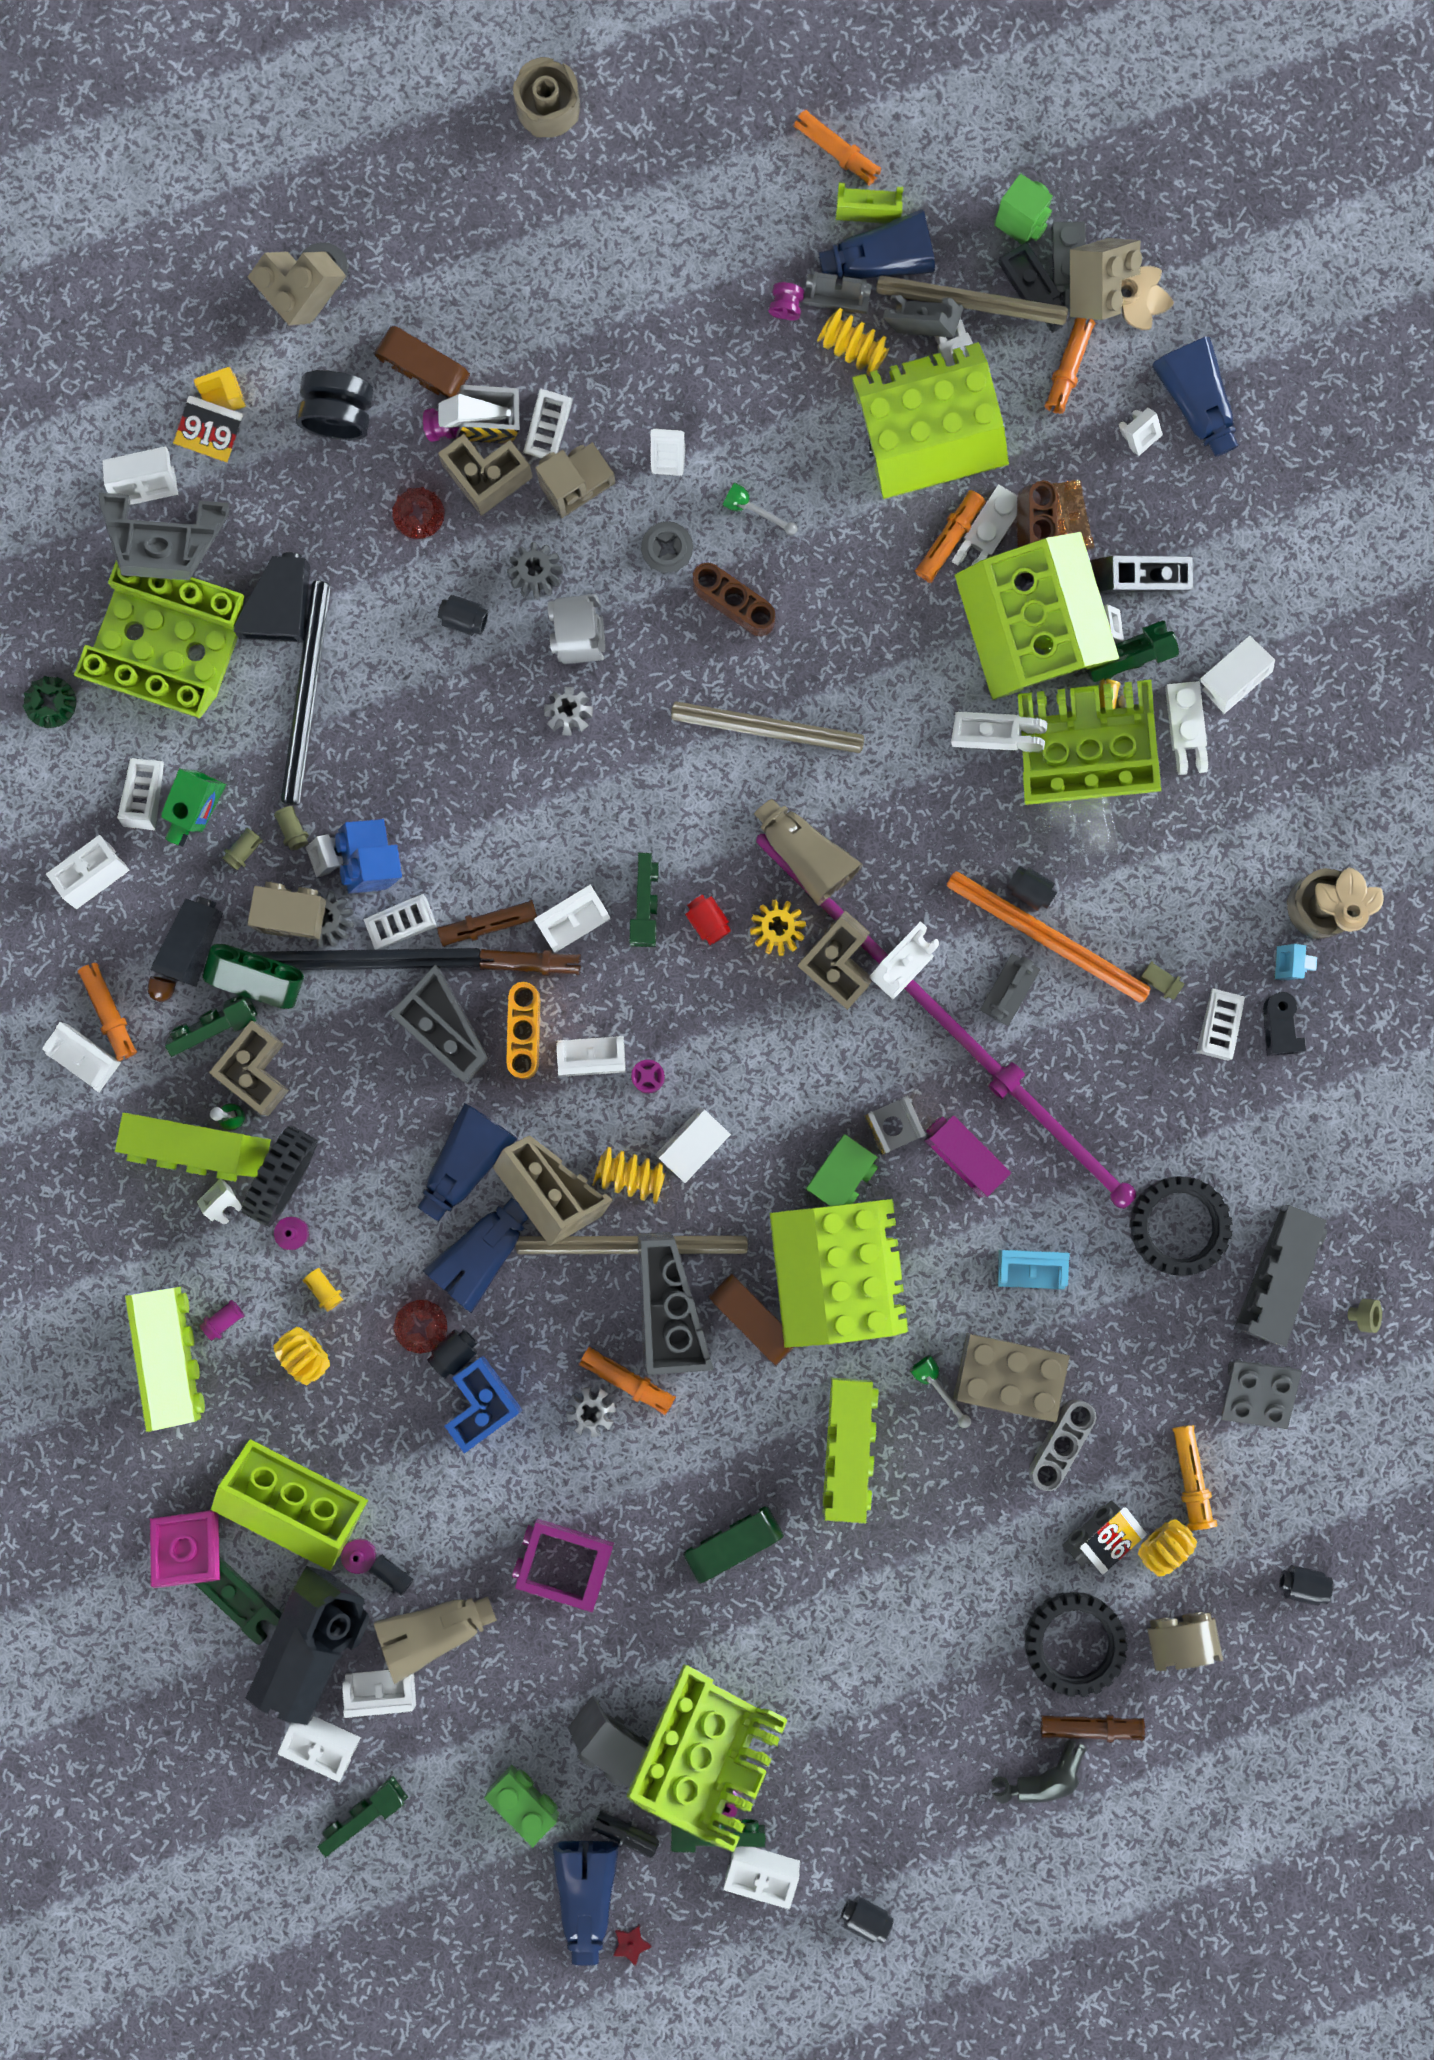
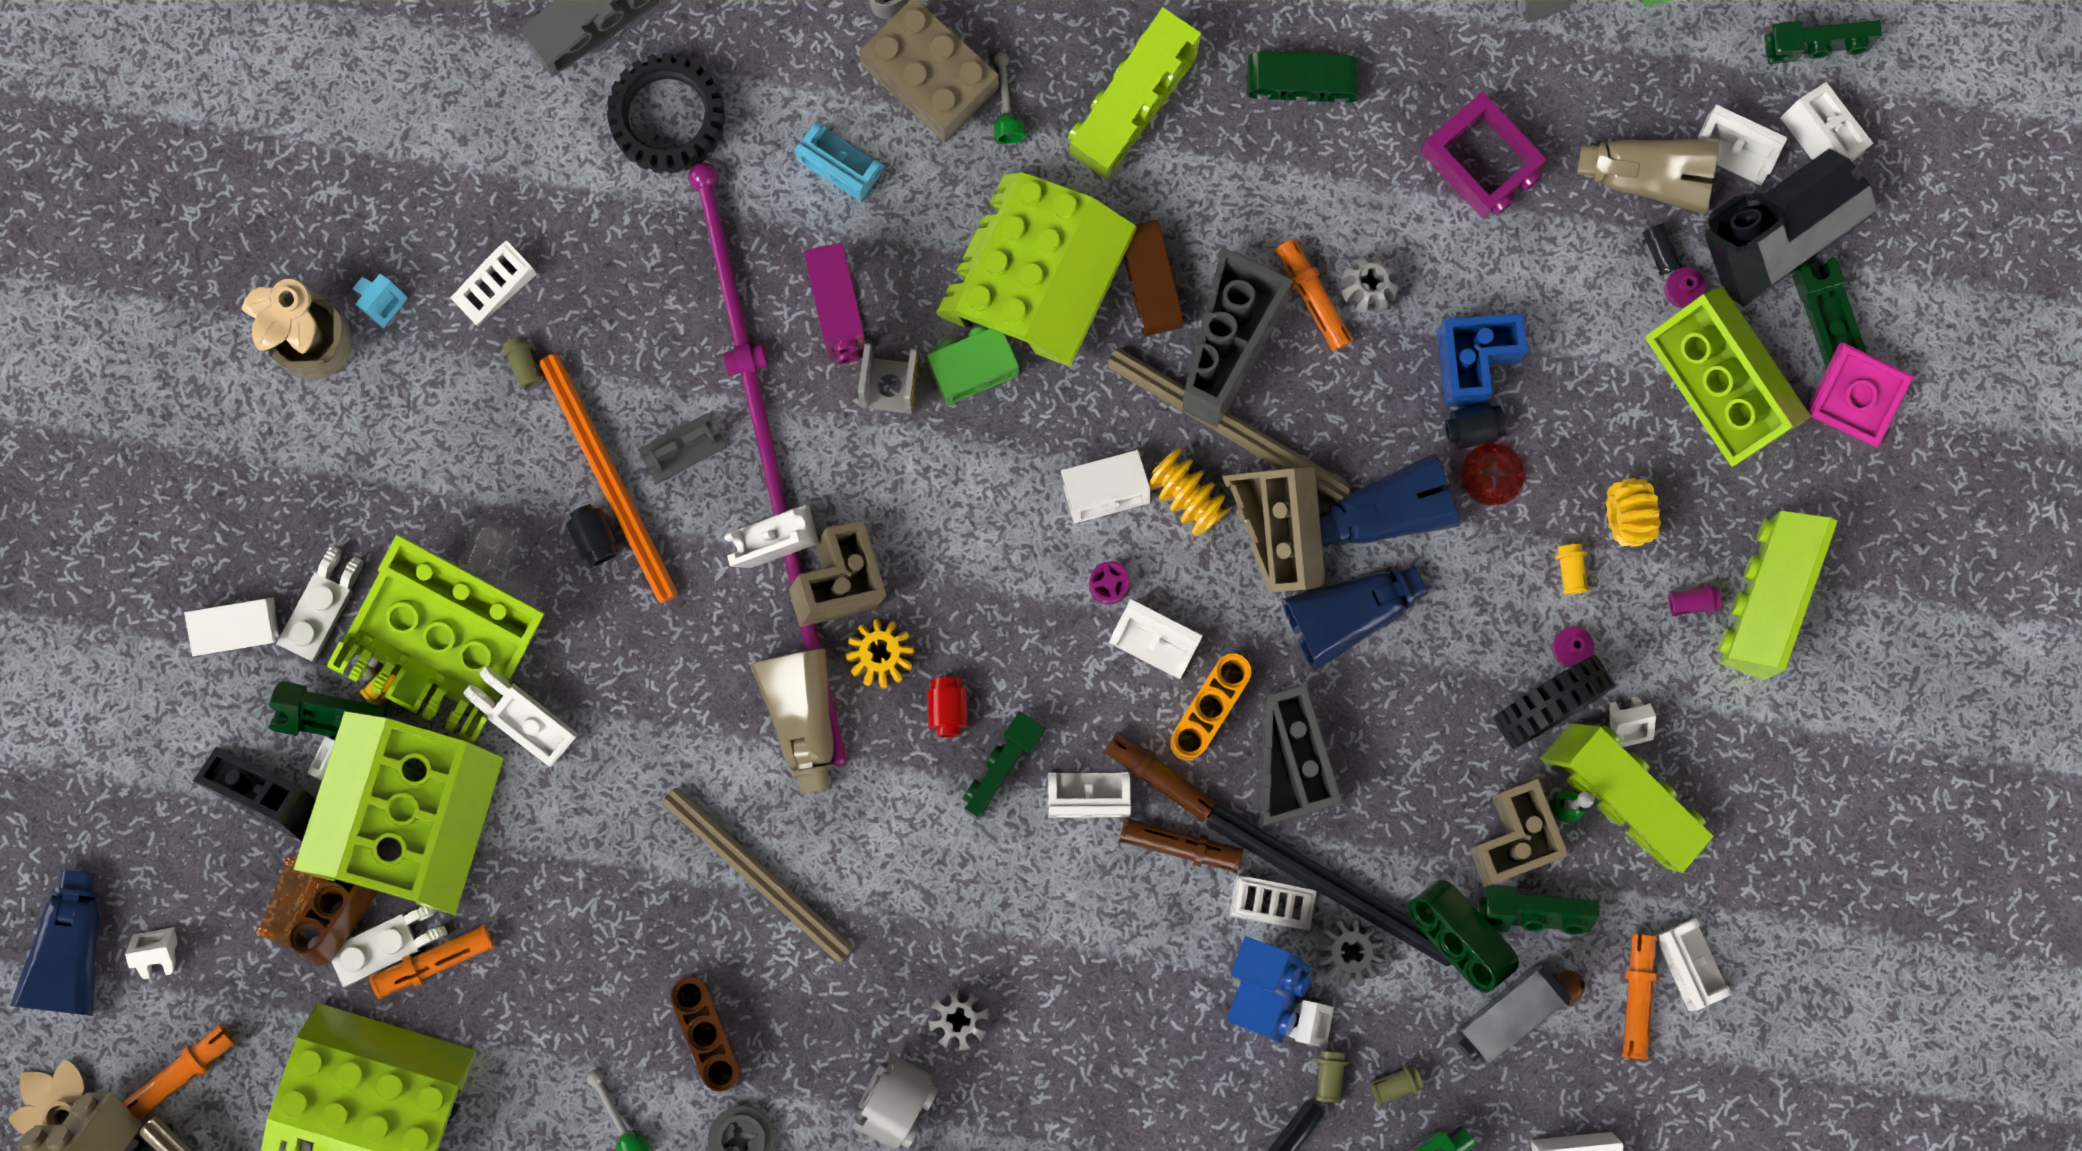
camera: 155 degrees left, 5 degrees down
(285, 912) = (1389, 976): dark tan brick -> none
(1280, 1025) = (435, 245): black leg -> none

